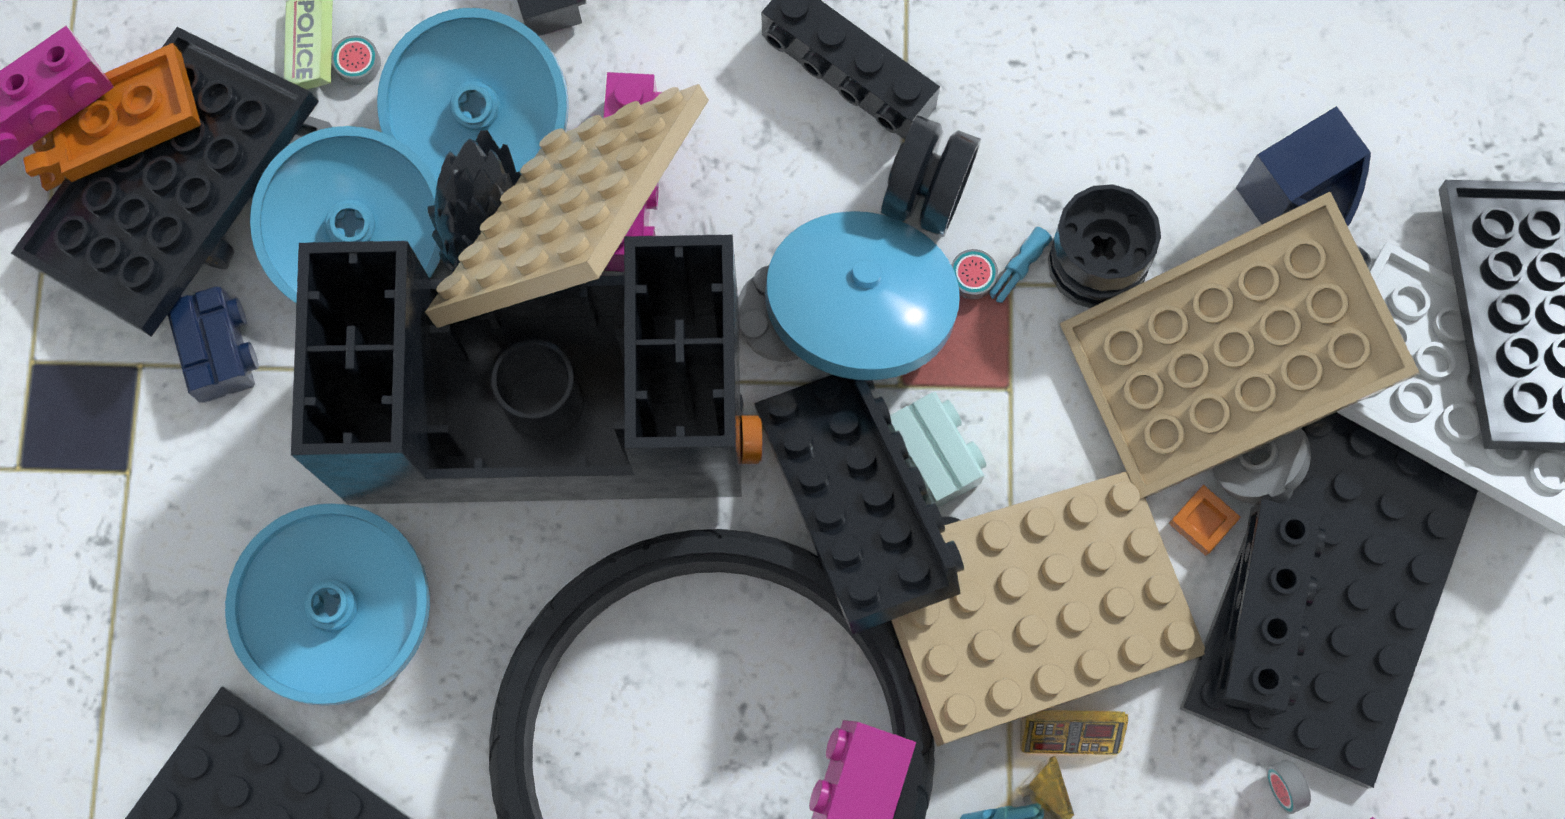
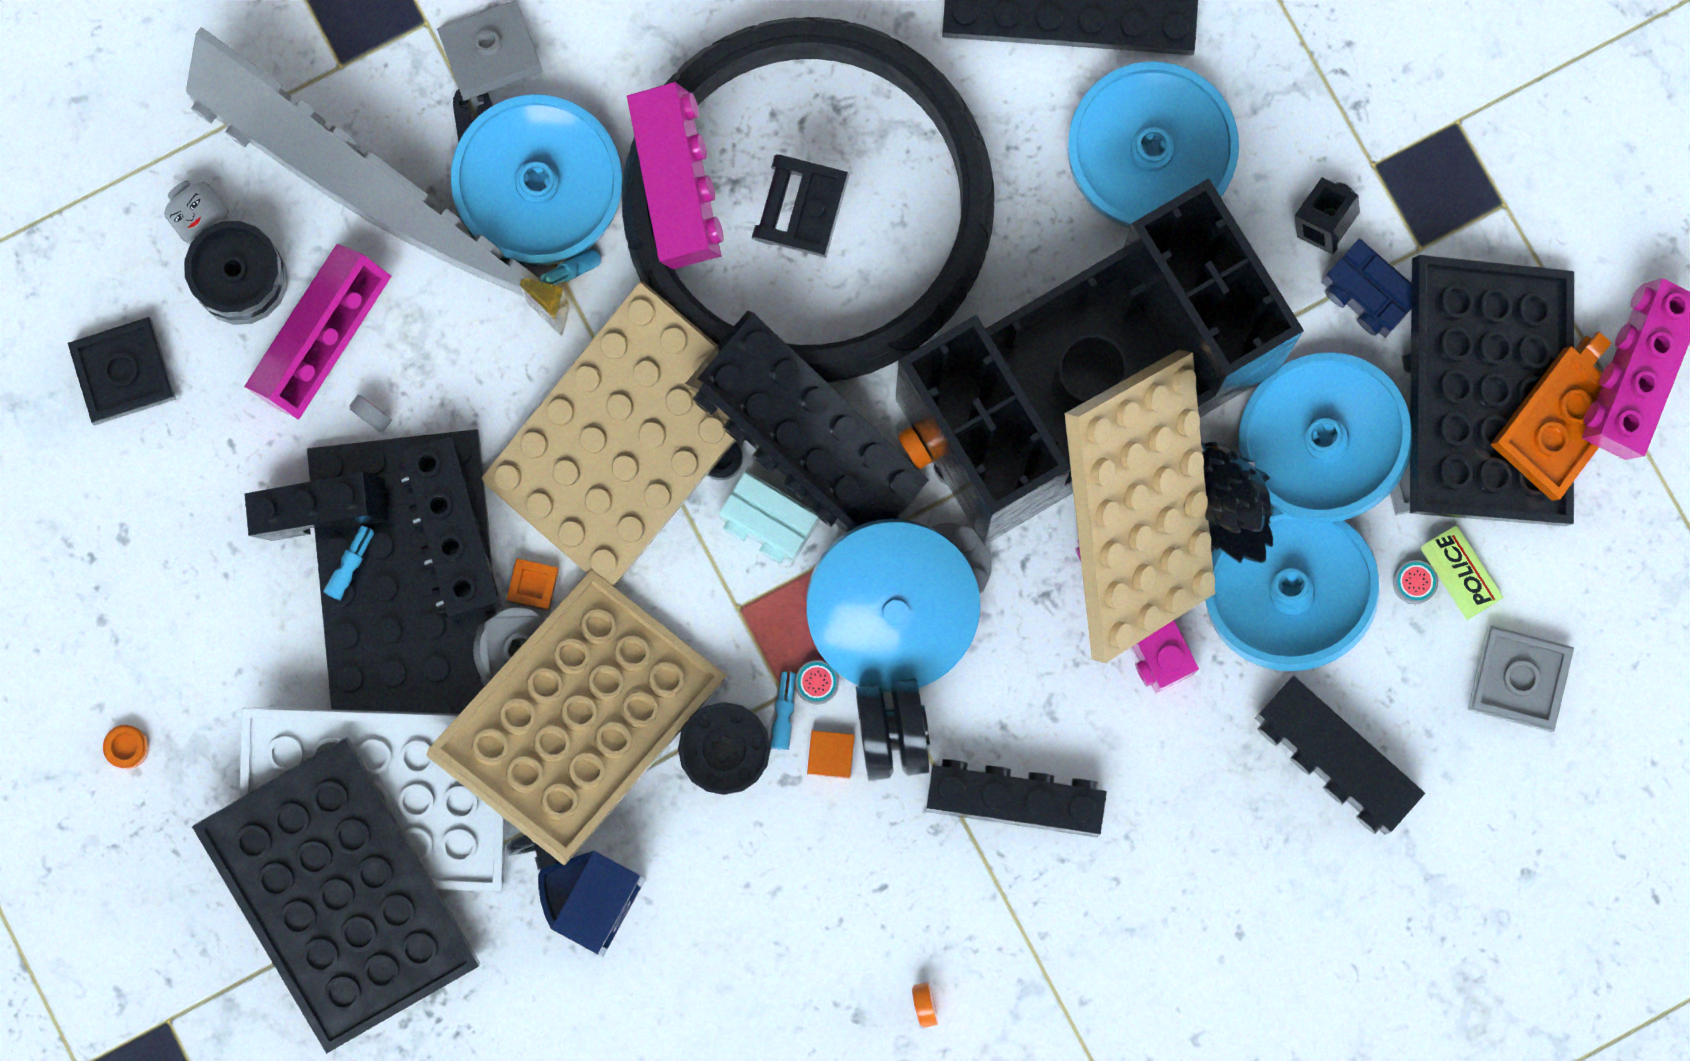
camera: 150 degrees right, 5 degrees up
(221, 430) = (1327, 214): none -> black brick
(715, 717) = (814, 208): none -> black plate
(997, 201) = (830, 754): none -> orange tile
(1073, 732) = (546, 369): slope -> none
(1389, 635) = (349, 562): none -> medium azure pin
(1419, 717) = (333, 501): none -> black arch

